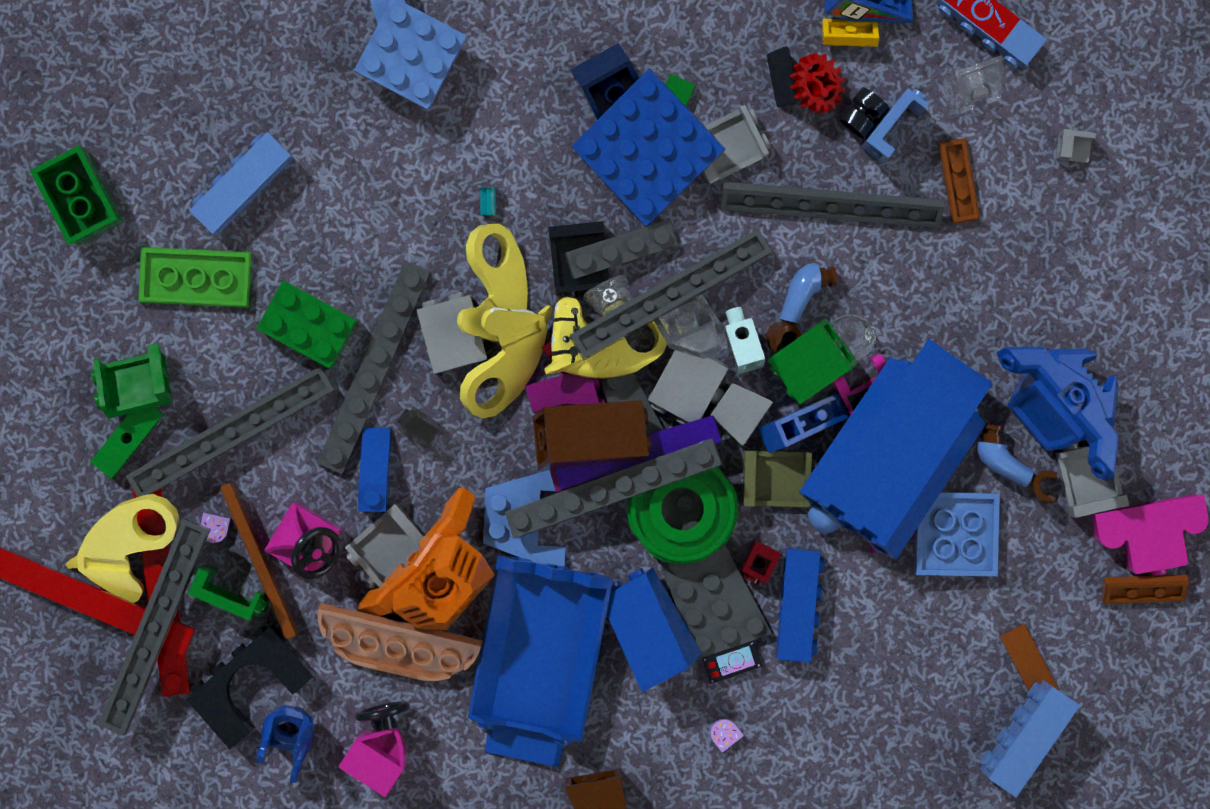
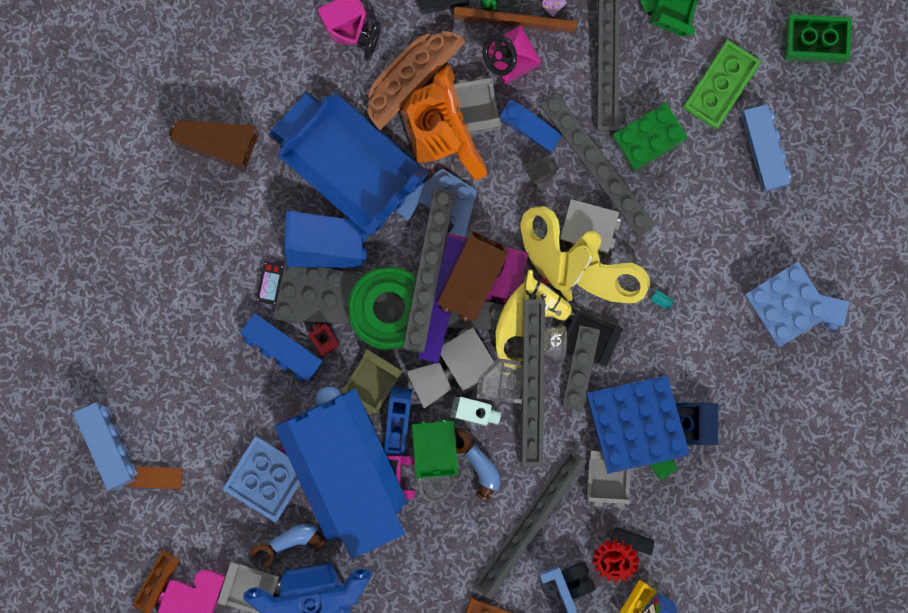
camera: 120 degrees right, 5 degrees down
(725, 733) = (226, 252): lavender tile -> none

